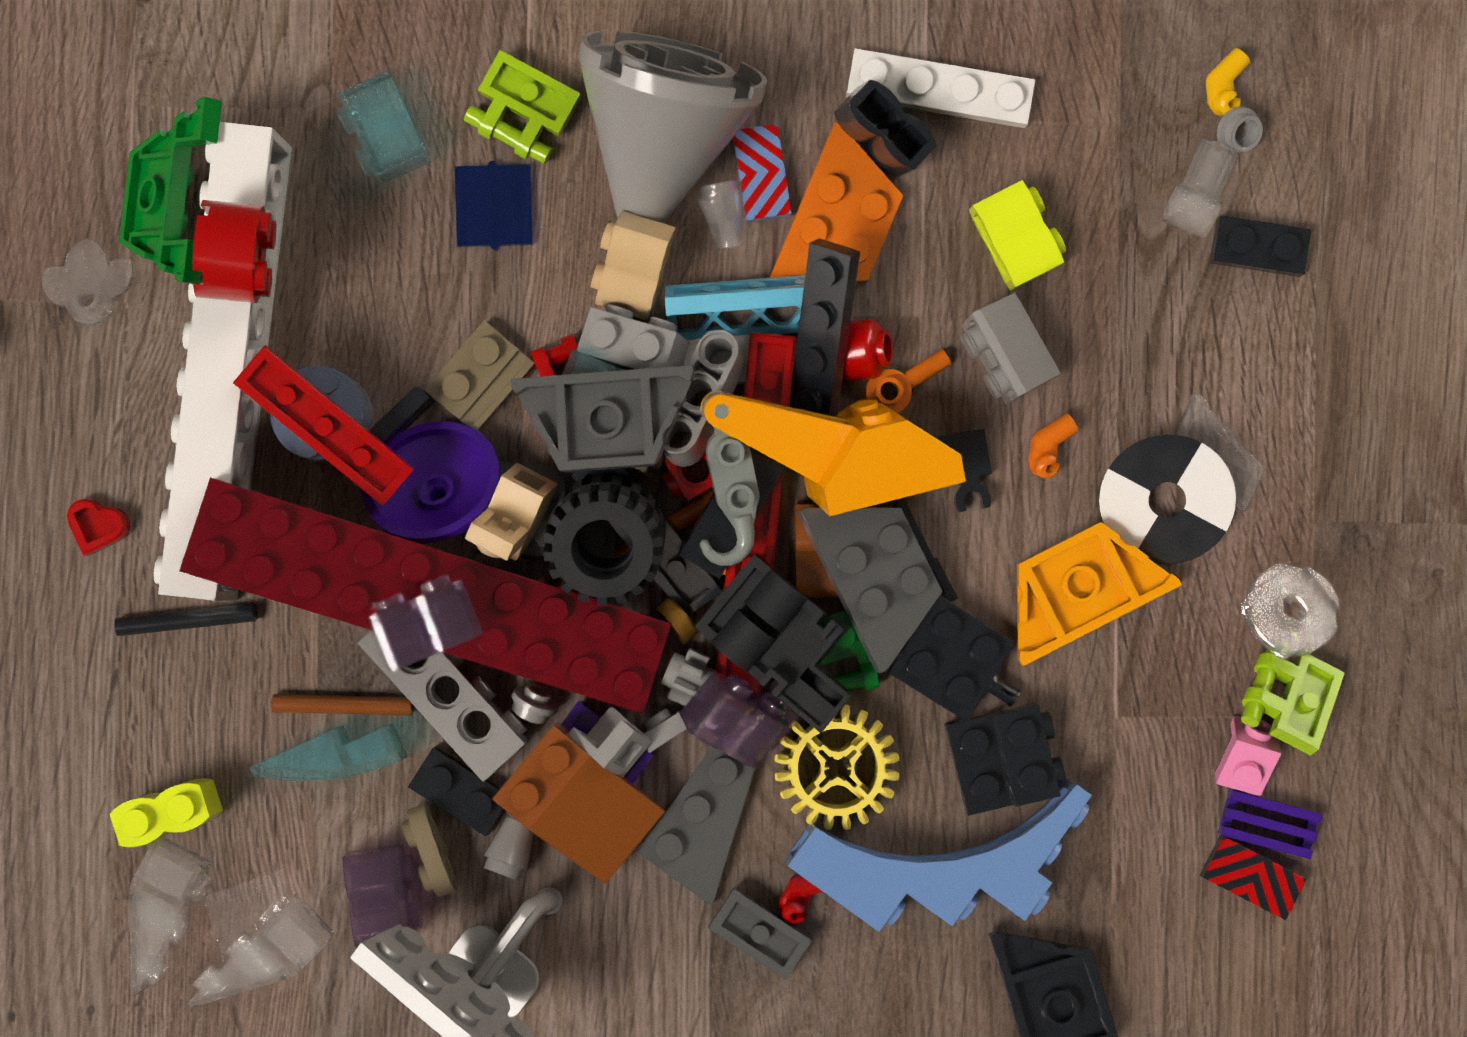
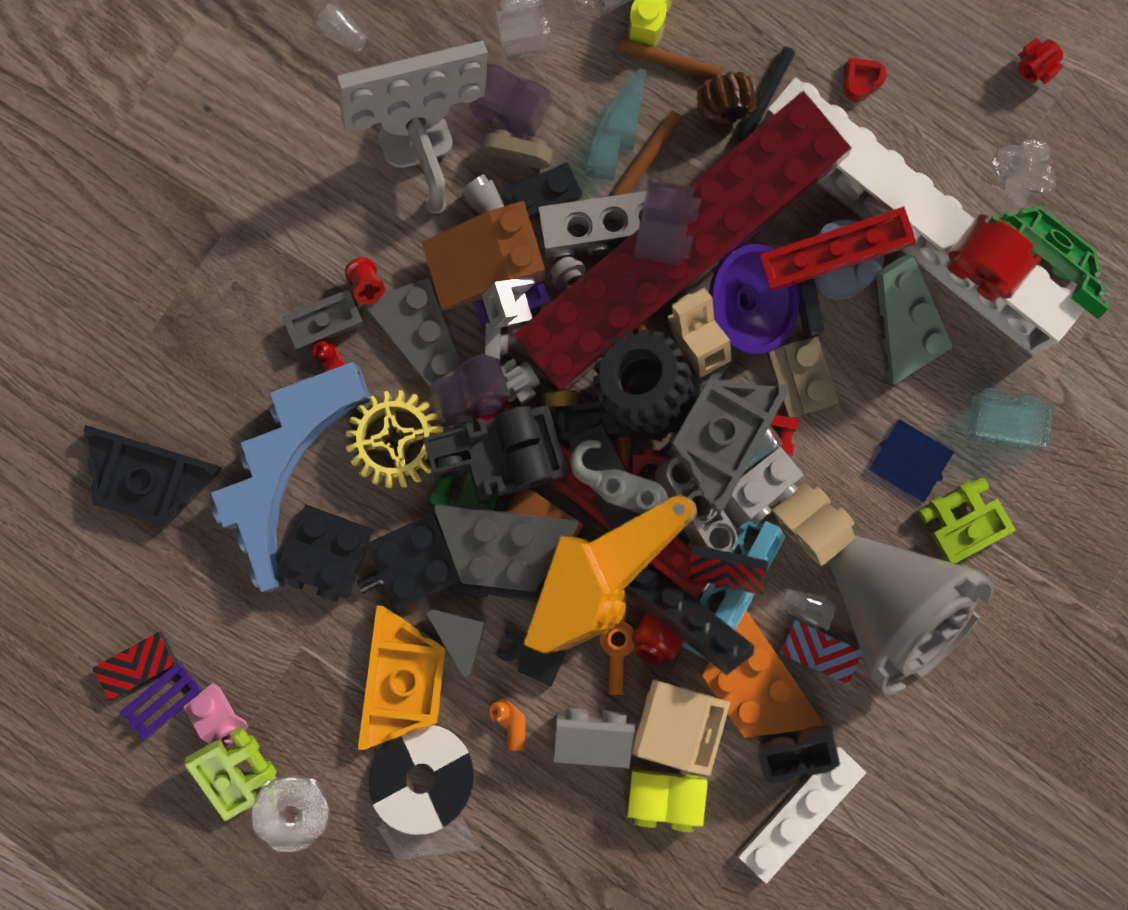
camera: 125 degrees right, 5 degrees down
(214, 751) = (669, 59): none -> dark orange bar
(223, 657) = (726, 98): none -> reddish brown gear
(343, 301) = (910, 319): none -> sand green wing
(692, 910) = (362, 275): none -> red bush
(746, 320) = (728, 569): none -> black tile
(939, 266) = (680, 728): none -> tan slope
(997, 556) = (460, 637): none -> dark grey slope

